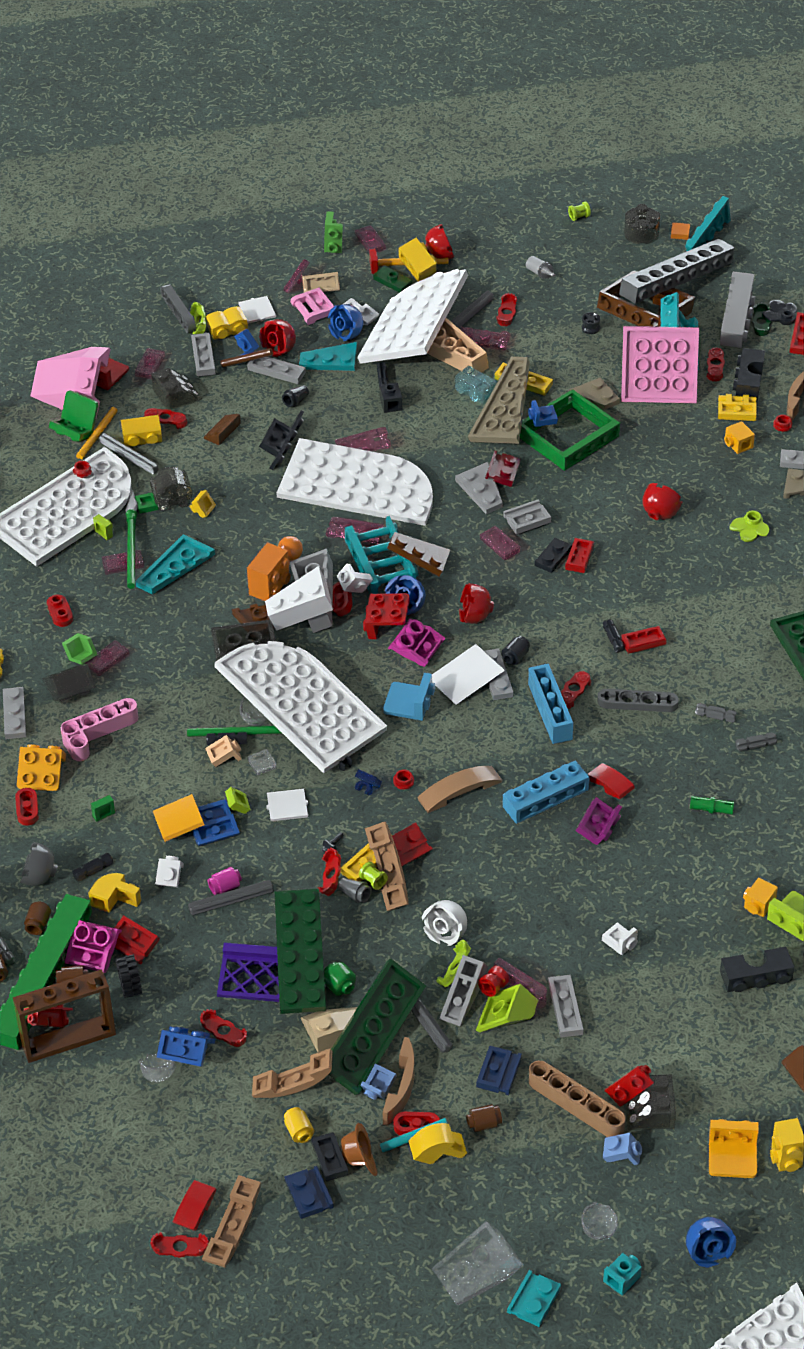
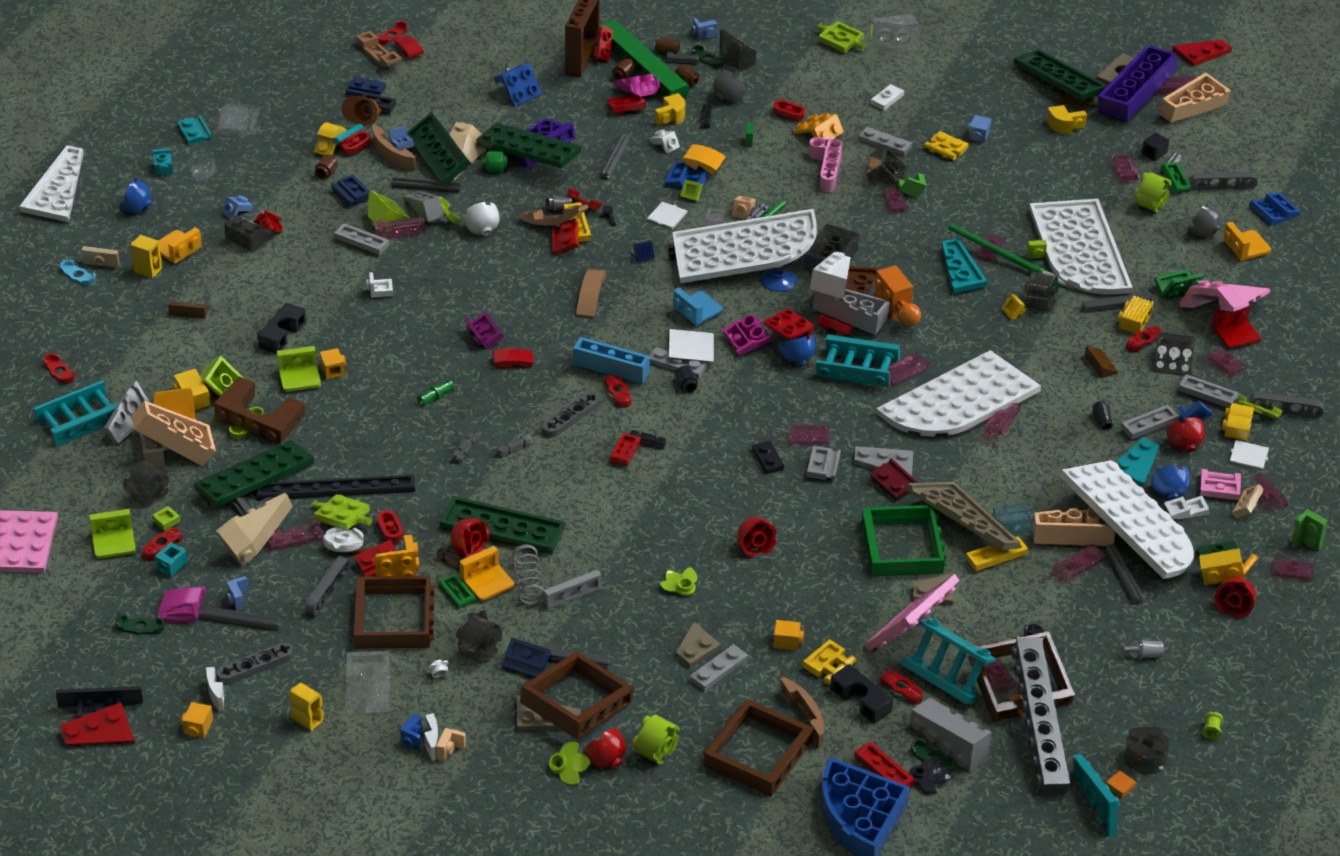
camera: 125 degrees right, 5 degrees down
(59, 610) = (968, 199): red plate -> none
(82, 469) = (1109, 258): red plate -> none
(96, 433) = (1166, 304): light orange bar -> none
(129, 976) = (598, 76): black tyre -> none
(212, 1022) = (527, 109): red piece -> none
(224, 881) = (628, 155): dark pink brick -> none
(247, 357) = (1174, 405): reddish brown bar -> none
(277, 438) = (1056, 378): black bracket -> none
(294, 1080) = (450, 109): medium nougat slope -> none
(298, 1125) = (411, 100): yellow brick -> none
(353, 581) = (833, 325): white bracket -> none
(373, 258) = (1251, 546): red tile -> none
(373, 875) = (554, 207): lime bush -> none
(390, 397) = (1046, 462): black brick -> none
(403, 775) = (627, 269): red plate -> none
(420, 552) = (831, 378): wing -> none
(476, 604) = (752, 377): red cylinder -> none
(493, 981) = (411, 209): red wheel -> none
(508, 303) = (1096, 593): red piece -> none
(542, 415) = (925, 516): blue bracket -> none
(545, 791) = (538, 320): dark azure brick -> none
(579, 555) = (750, 467): red plate -> none
(585, 1103) = (293, 204): medium nougat beam -> none
(782, 423) = (776, 675): red plate -> none

